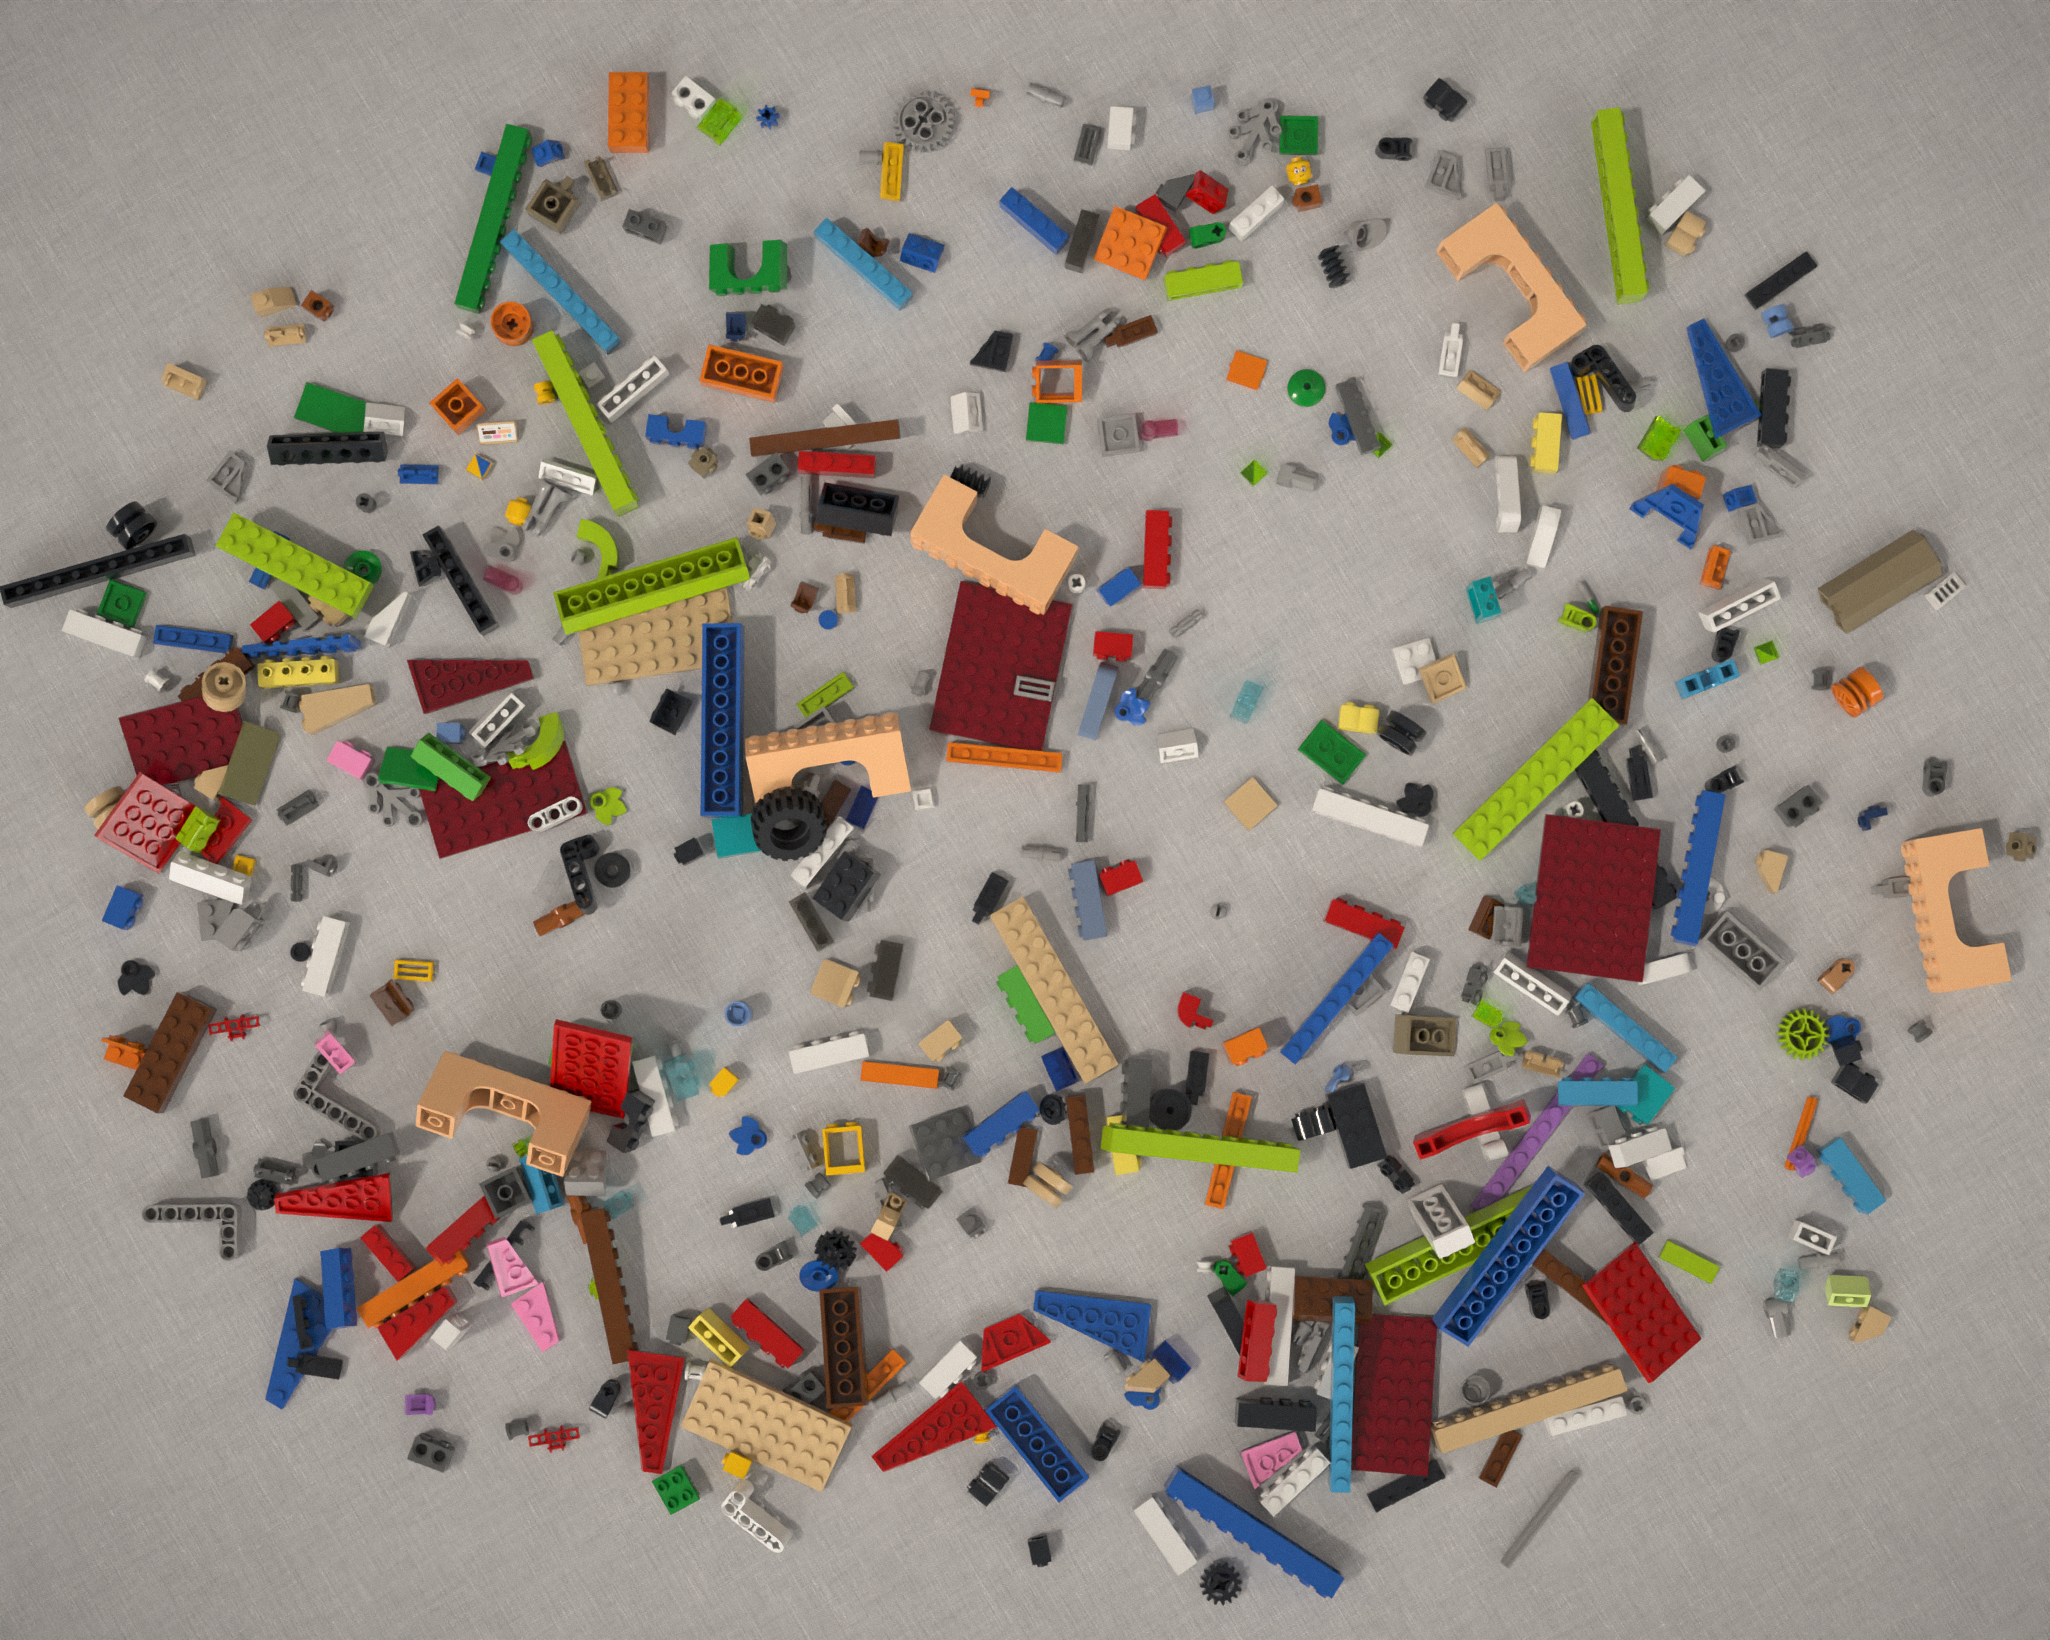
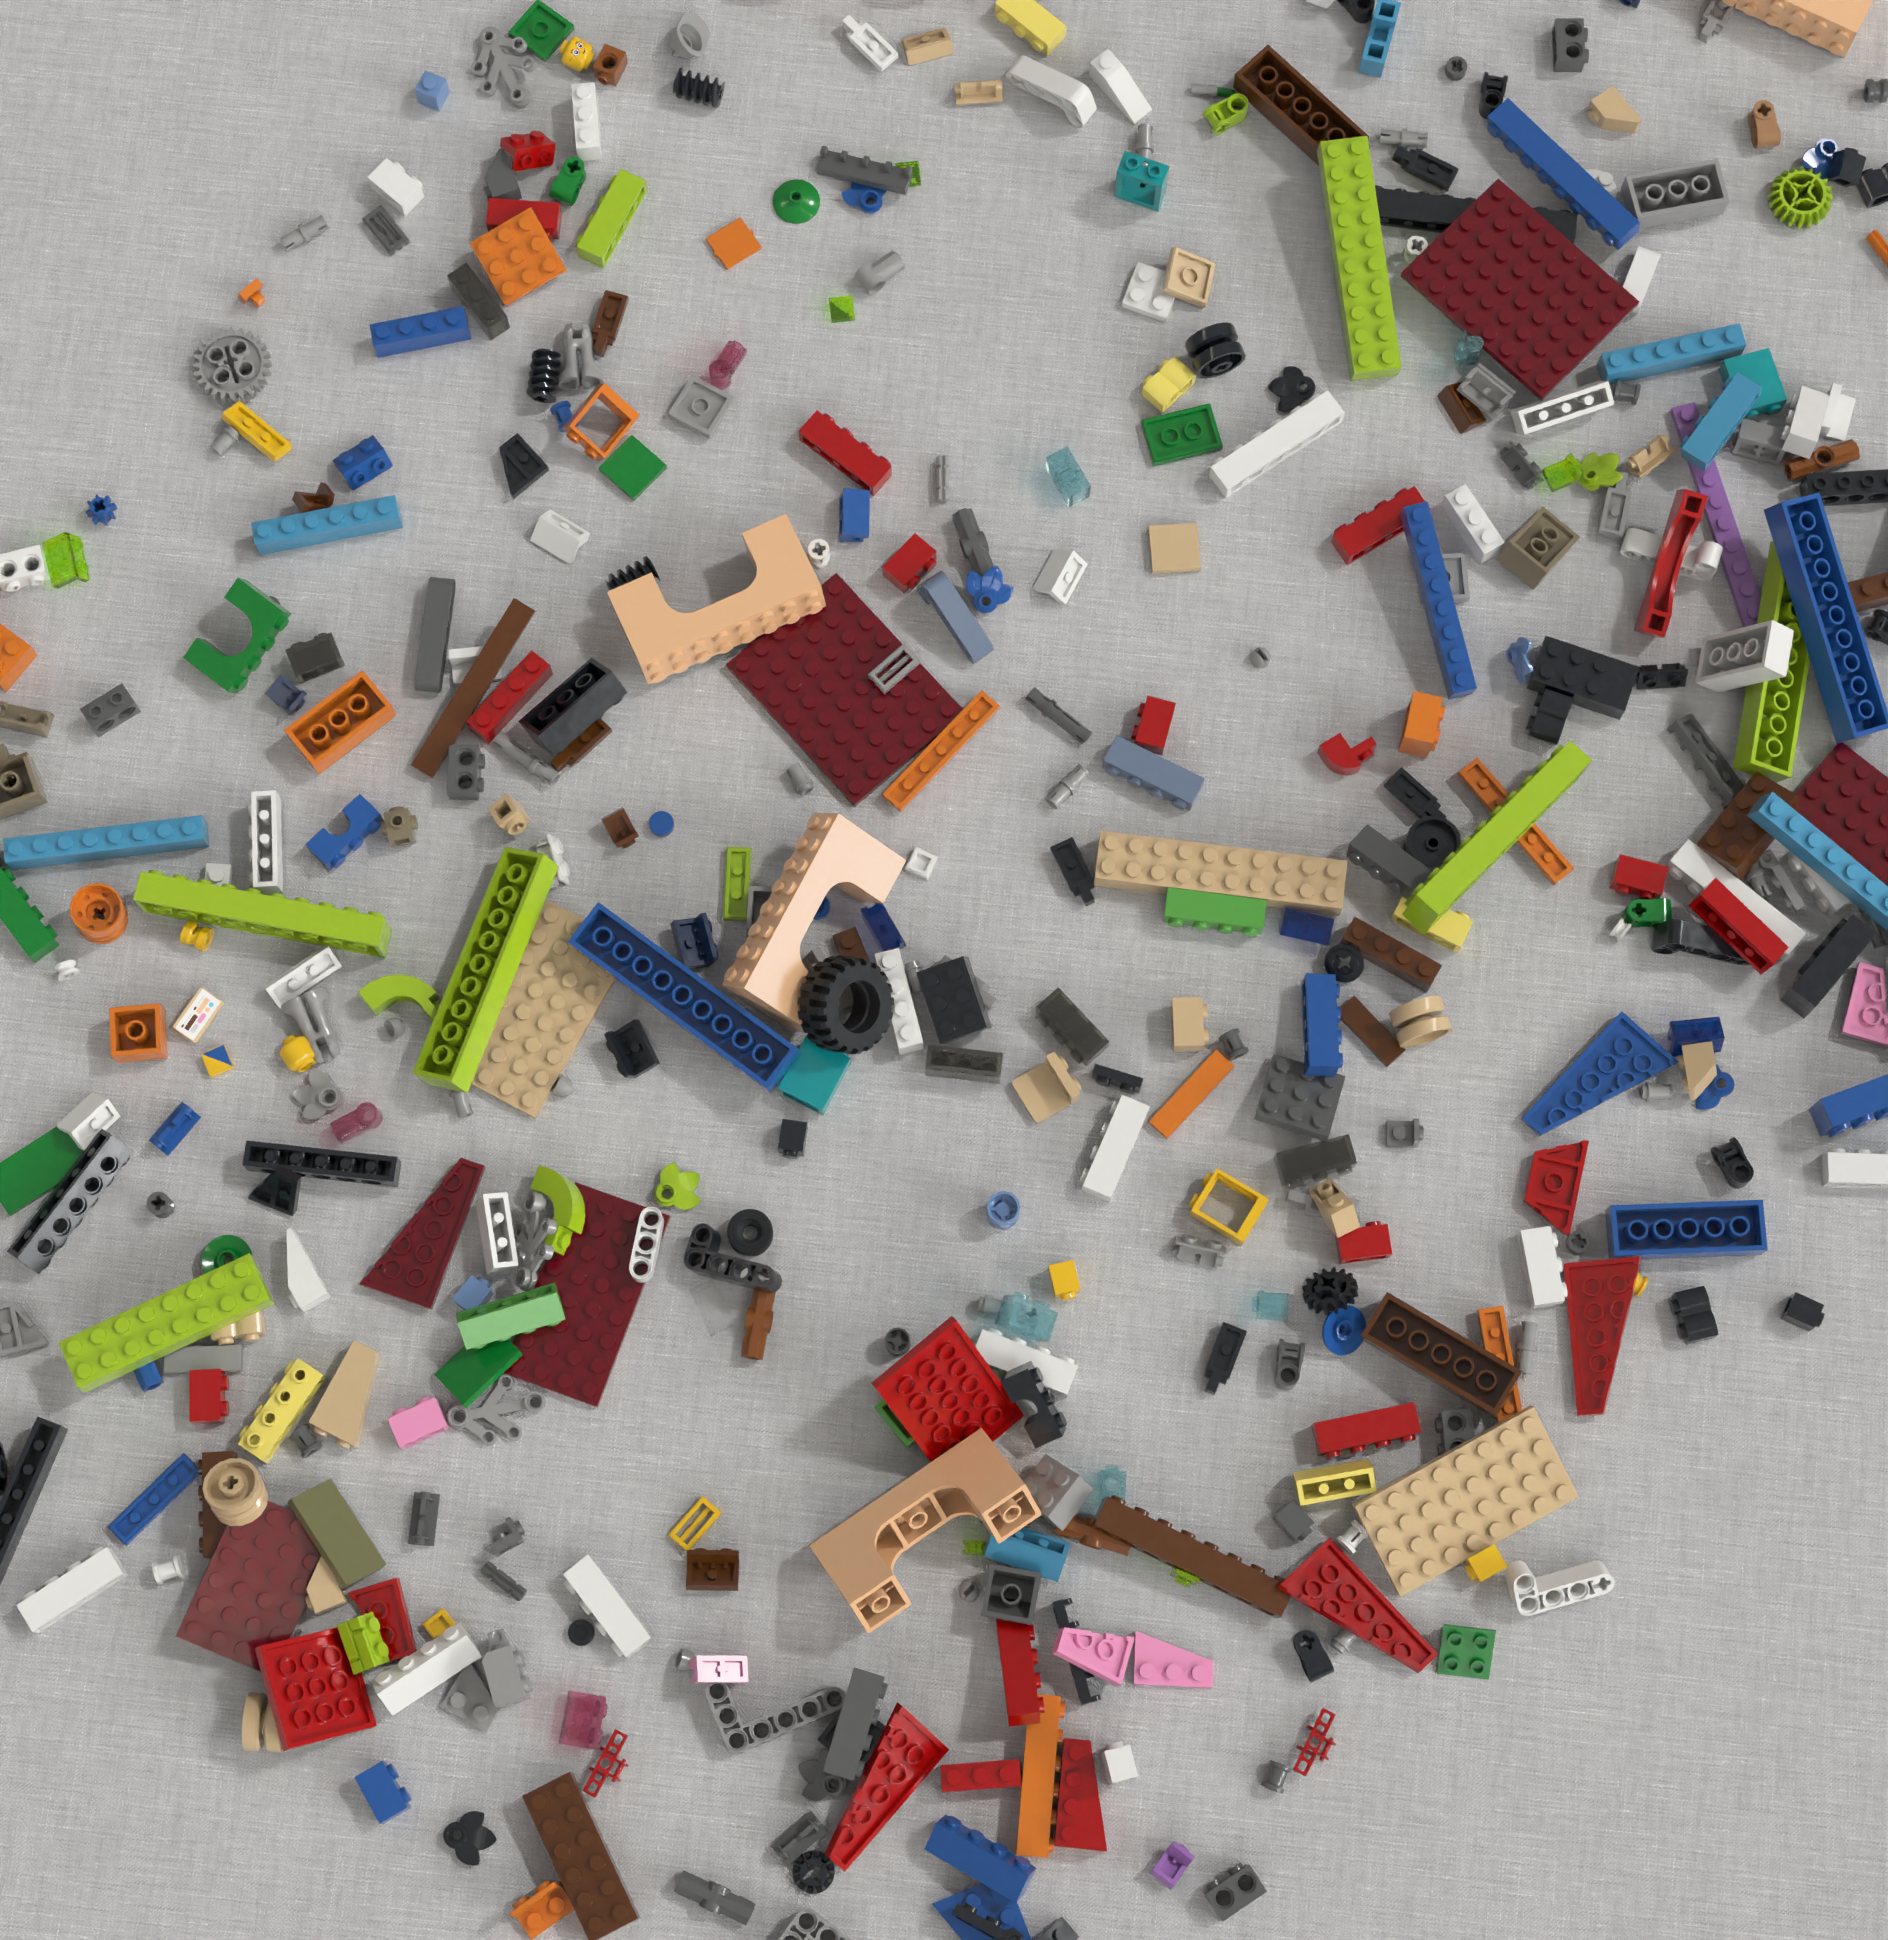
camera: 50 degrees left, 10 degrees down
(121, 603) = (54, 1547): green tile -> none
(249, 993) = (583, 1720): none -> clear pink bracket
(308, 645) = (261, 1375): blue wing -> none
(745, 1136) = (1137, 1300): blue plate -> none
(766, 698) = (694, 941): none -> dark blue bracket
(817, 1186) = (1246, 1261): dark grey wheel -> none
(843, 386) = (435, 634): none -> dark grey beam
(845, 593) = (647, 786): tan hinge -> none
(870, 1014) = (1106, 1076): none -> black plate
(1062, 321) = (543, 375): none -> black piece

